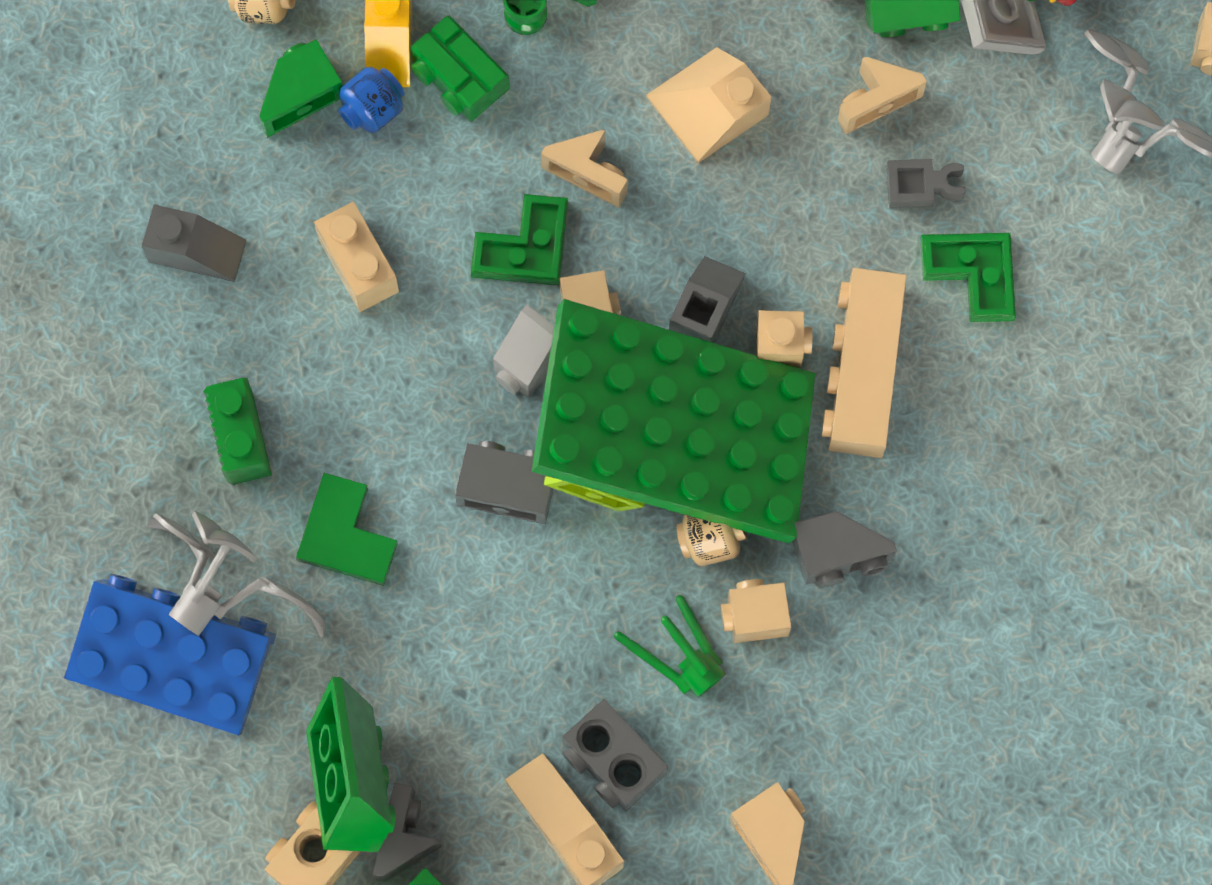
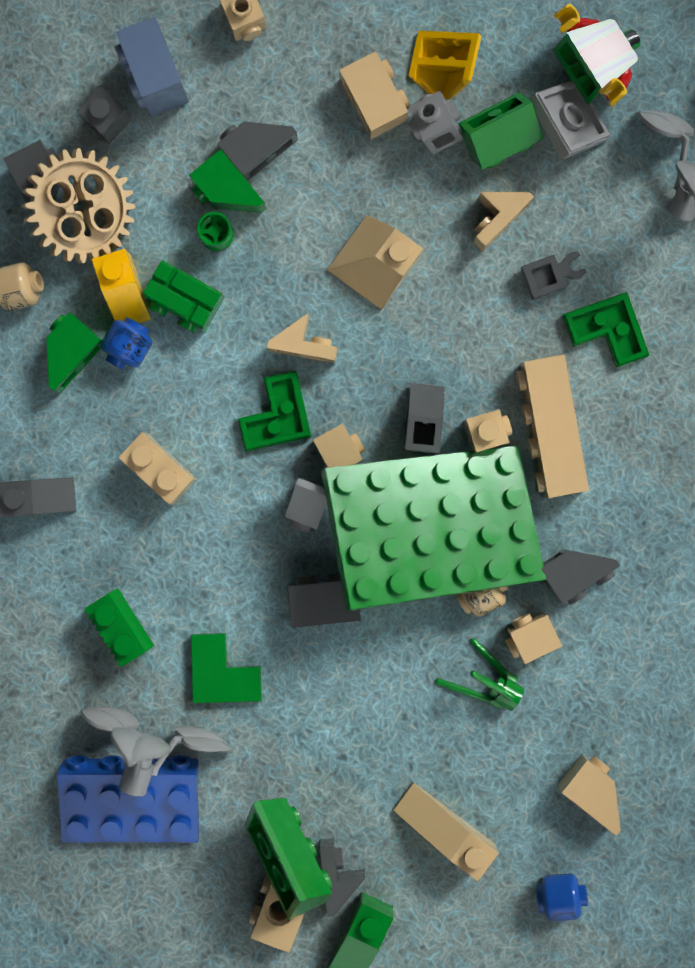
camera: 20 degrees left, 15 degrees up
(624, 748) = (469, 766): dark grey brick -> none

